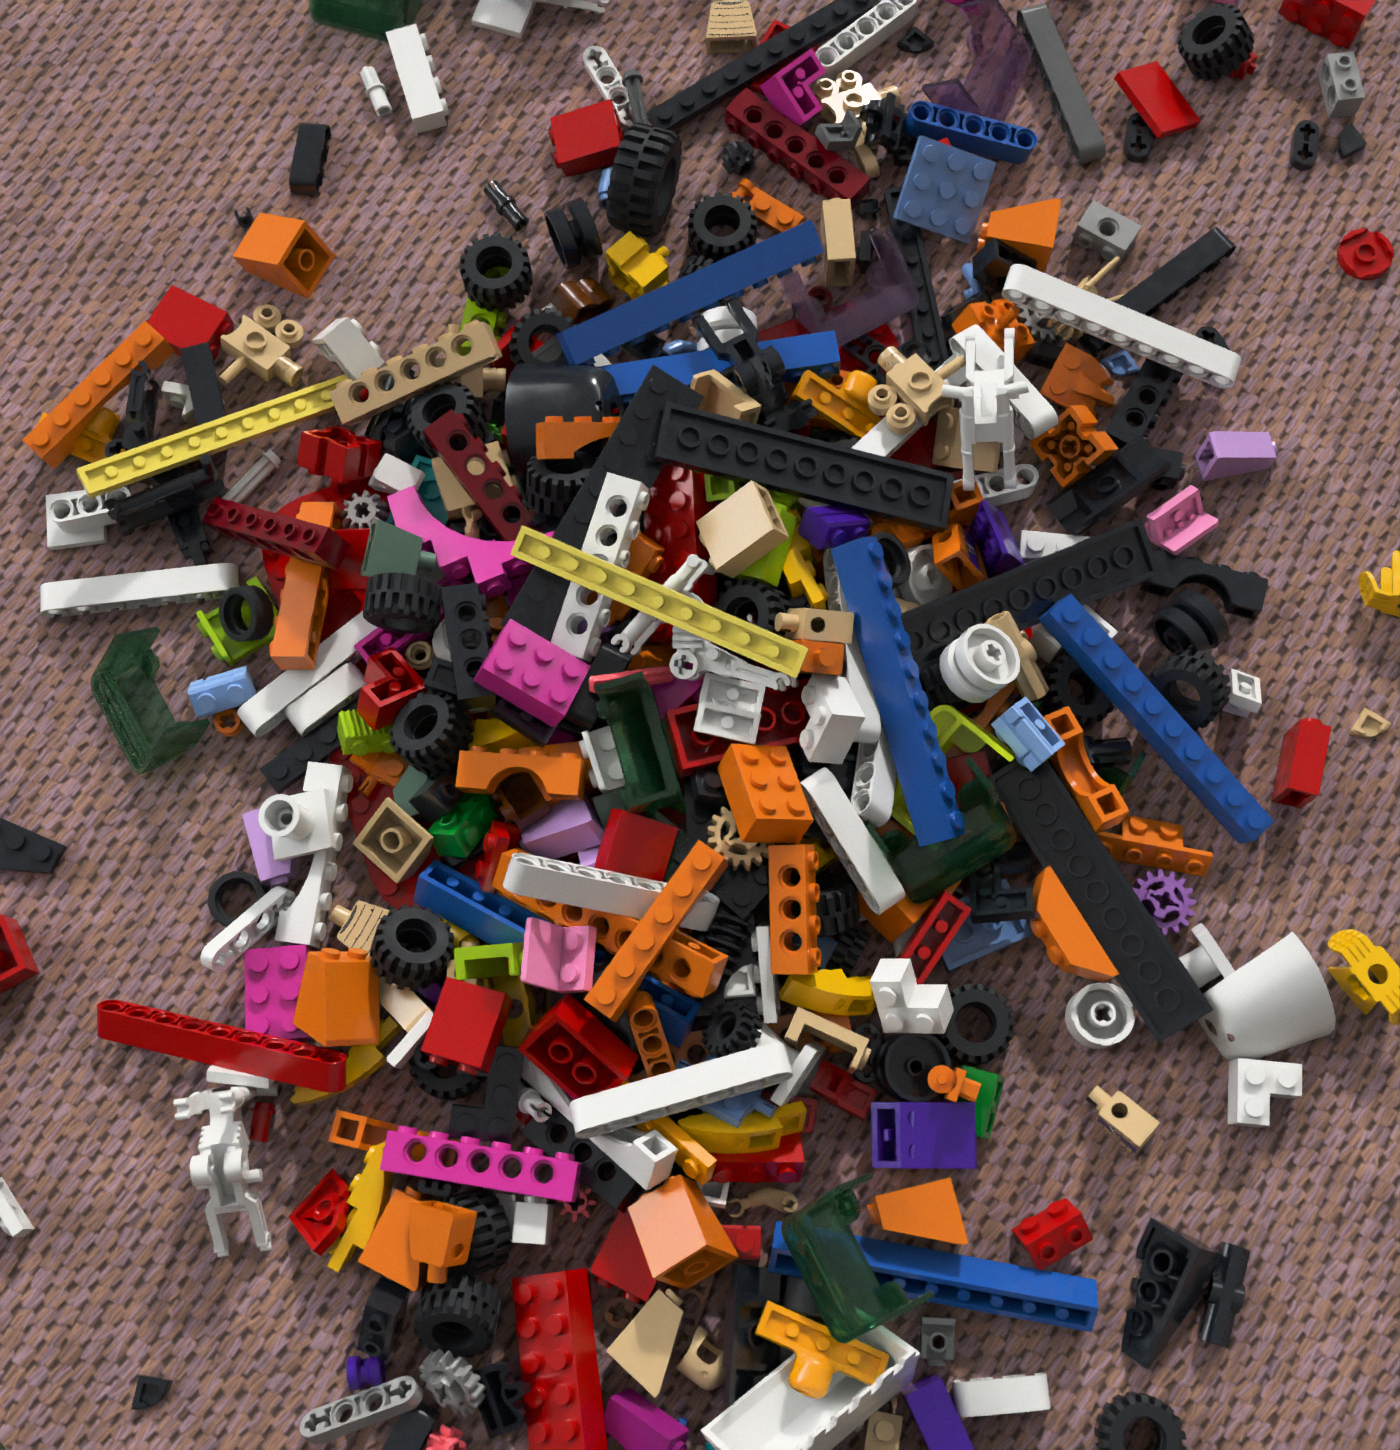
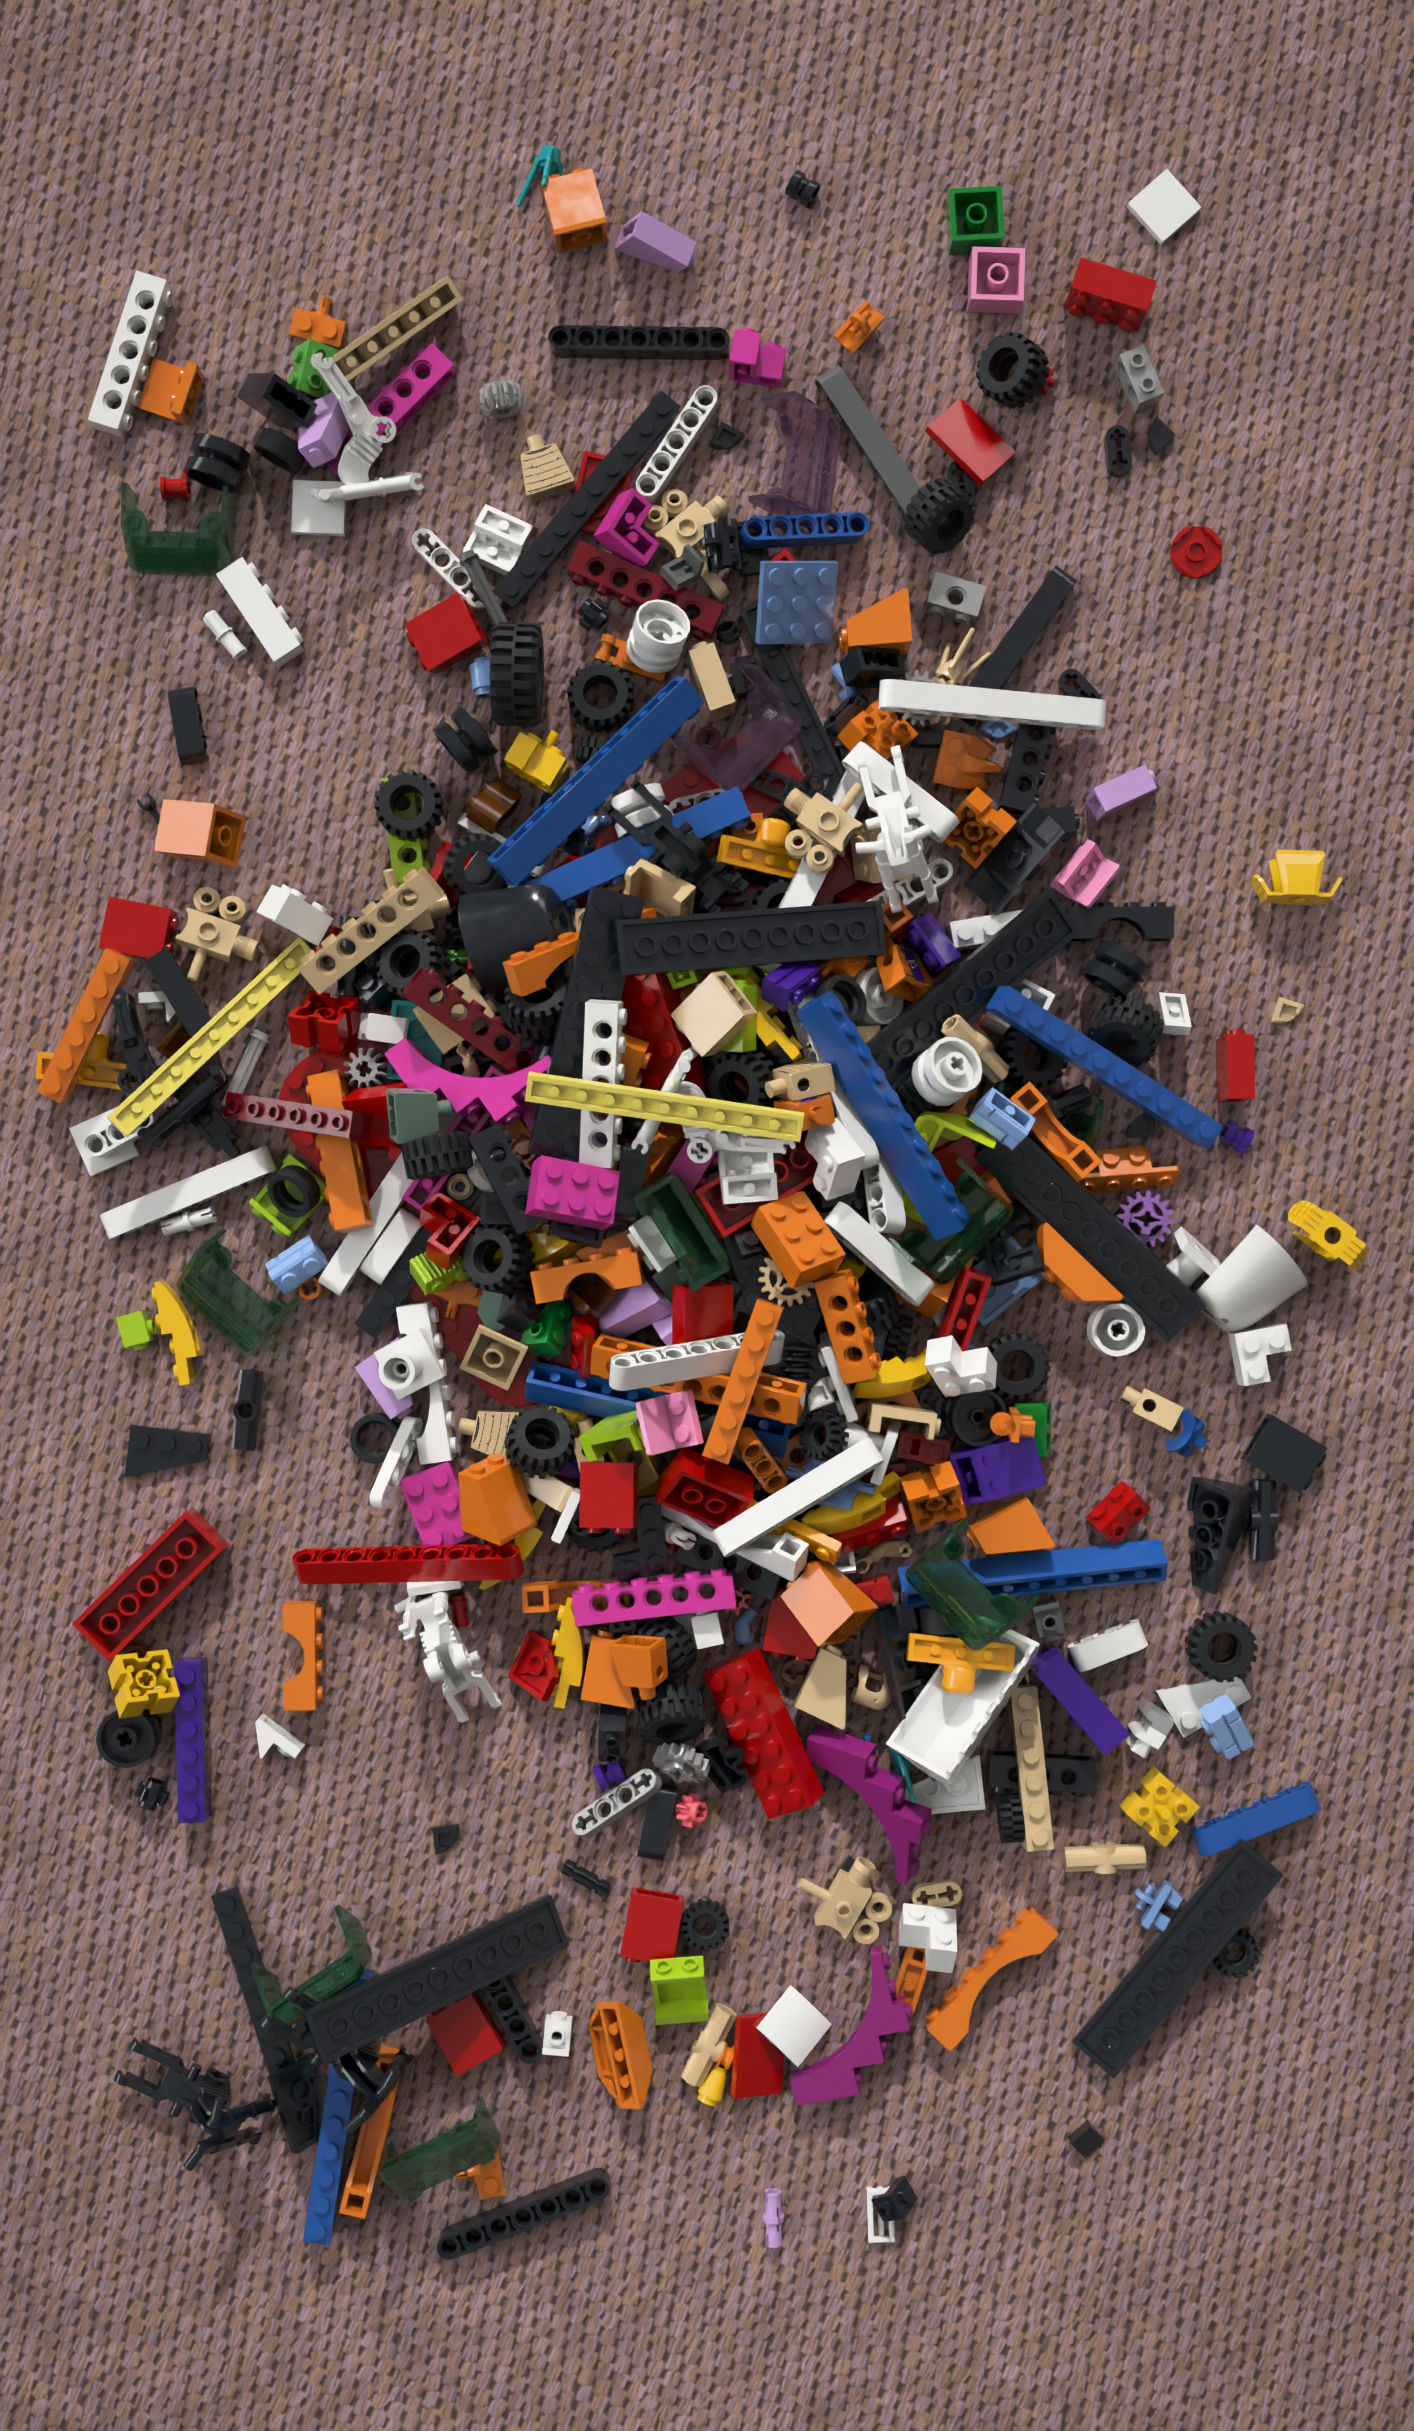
camera: 20 degrees left, 15 degrees up
(31, 712) = (137, 1329): none -> lime brick
(57, 1159) = (302, 1621): none -> orange arch
(76, 718) = (176, 1320): none -> yellow slope
(121, 812) = (249, 1392): none -> black piece
(129, 619) = (188, 1221): none -> white pin
(506, 205) = (389, 722): black pin -> none
(575, 1239) = (742, 1626): none -> medium blue arm
(654, 675) = (655, 1171): coral axle -> none
(667, 73) = (498, 539): none -> white slope
(795, 185) = (657, 636): none -> white wheel
(838, 1145) = (933, 1496): none -> orange brick
(1095, 140) = (939, 516): none -> black tyre
(1157, 1167) = (1189, 1437): none -> blue piece
(1181, 804) = (1142, 1126): none -> black tile
(1267, 1221) = (1284, 1453): none -> black brick
(1284, 840) = (1235, 1136): none -> dark purple wheel

